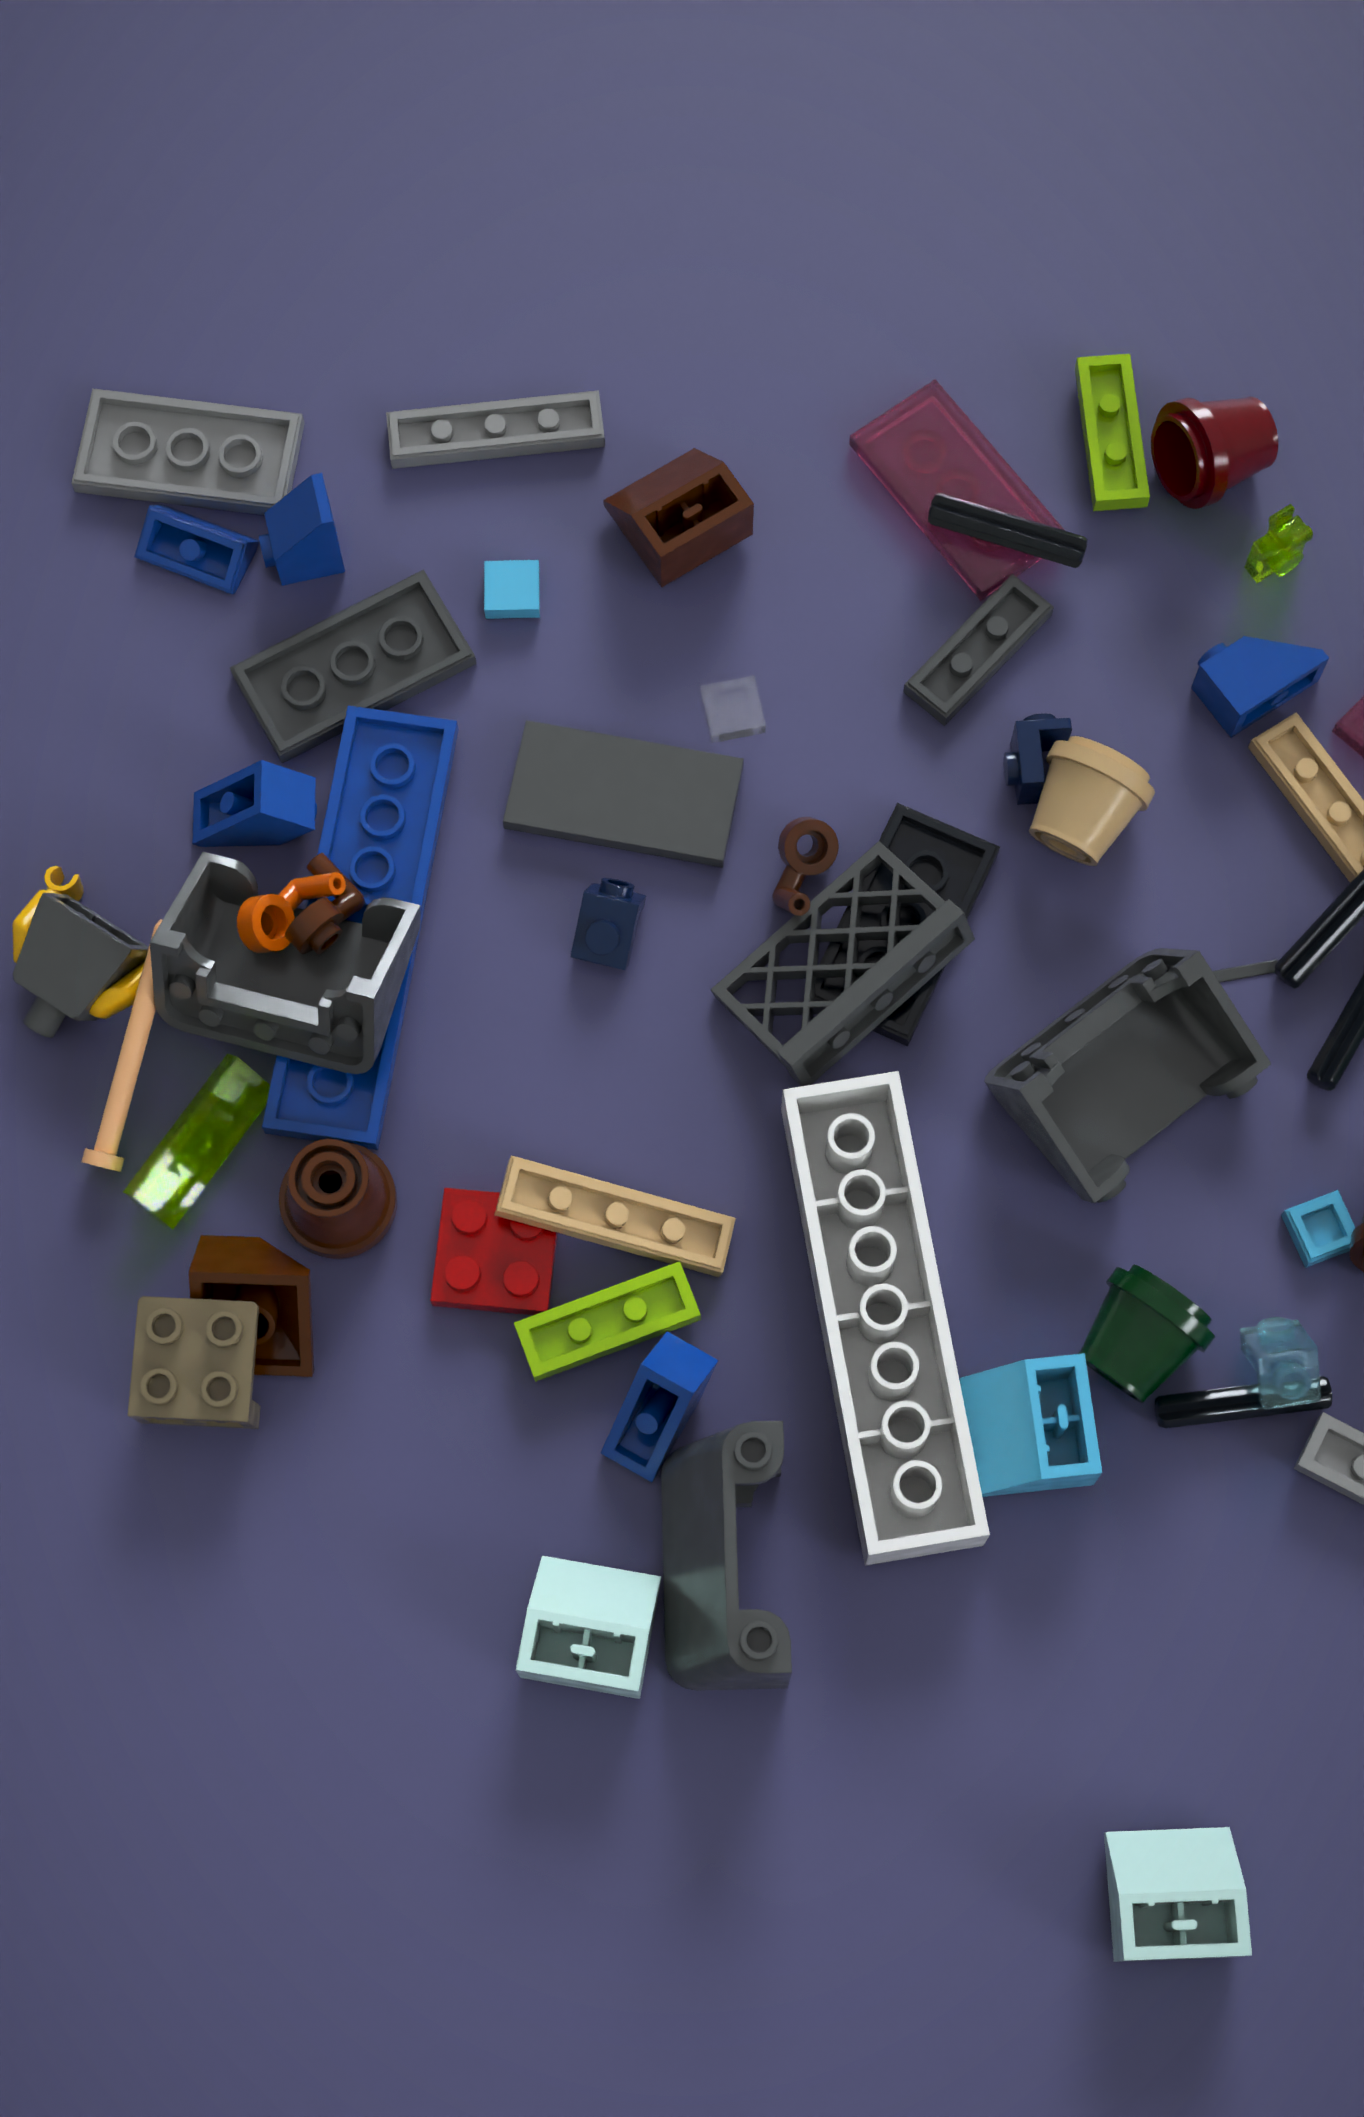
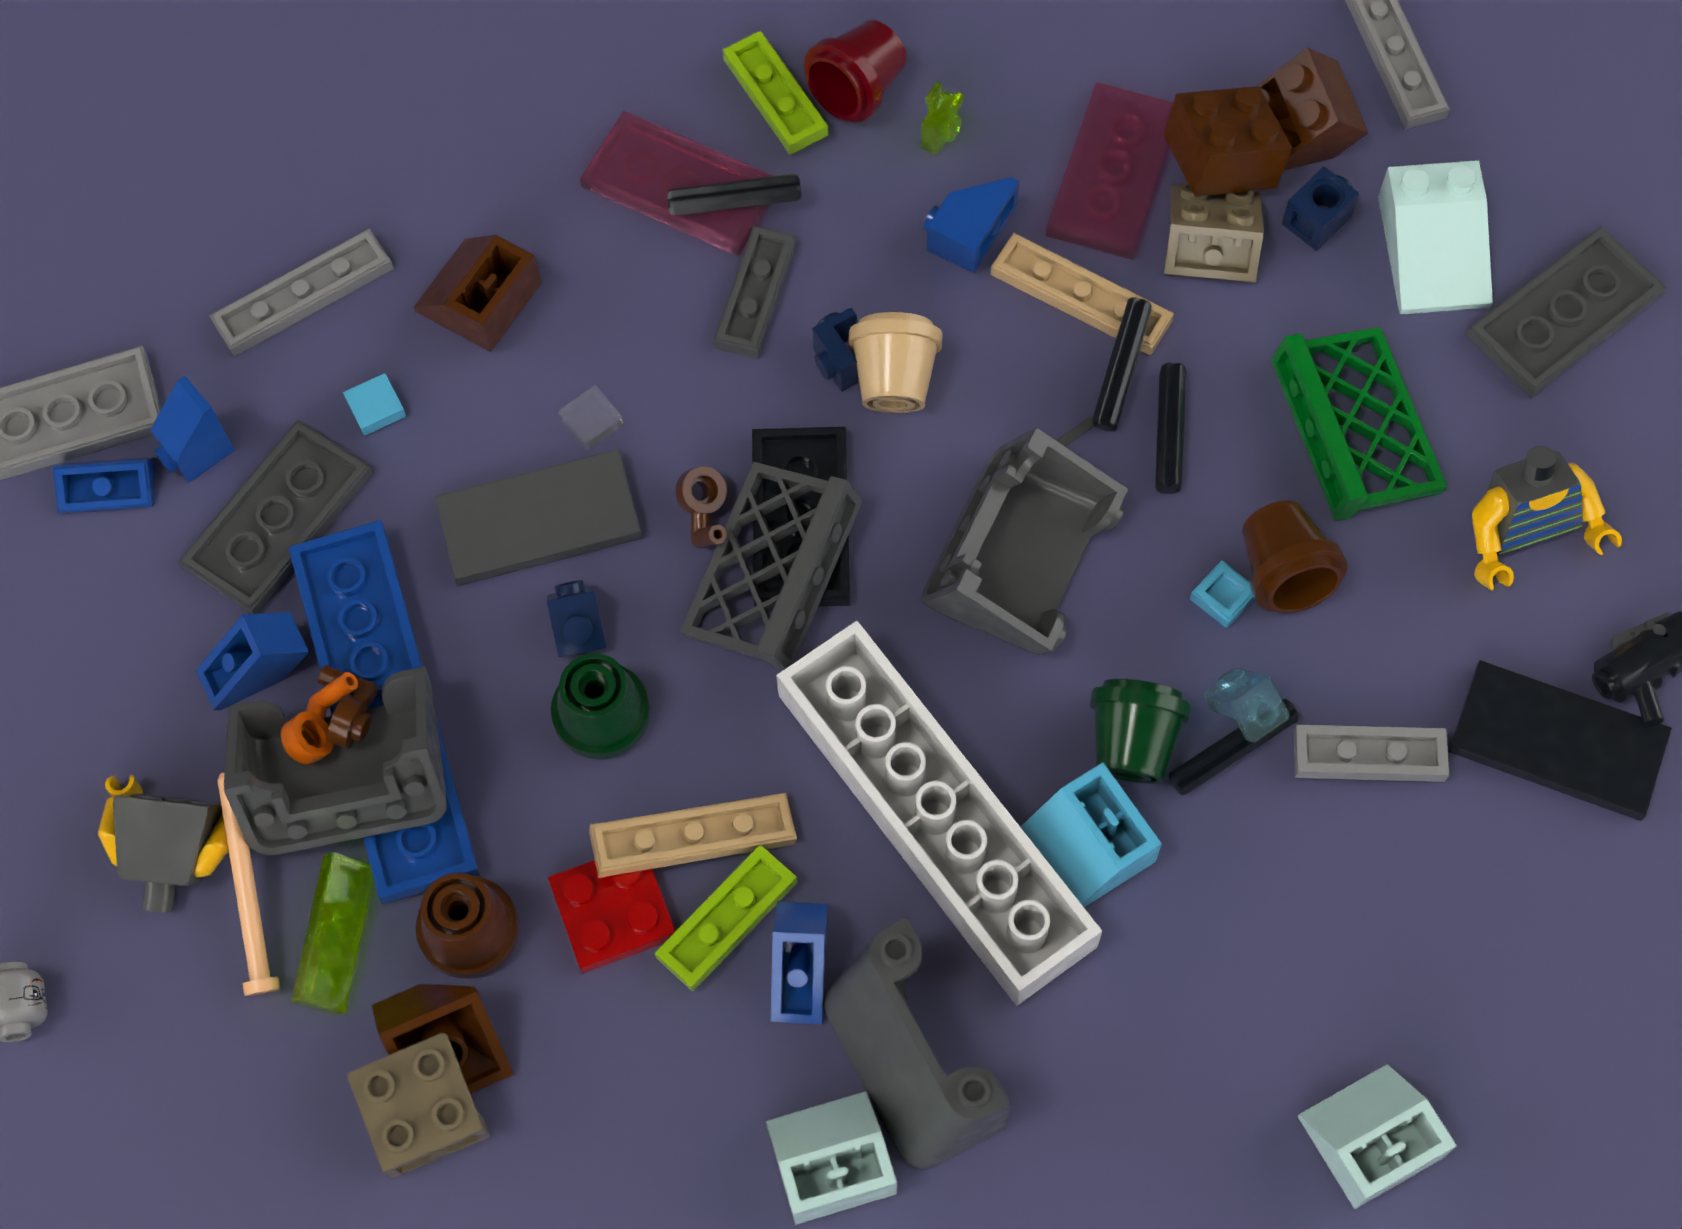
camera: 25 degrees left, 5 degrees down
(589, 1054) = (605, 724): none -> dark green piece

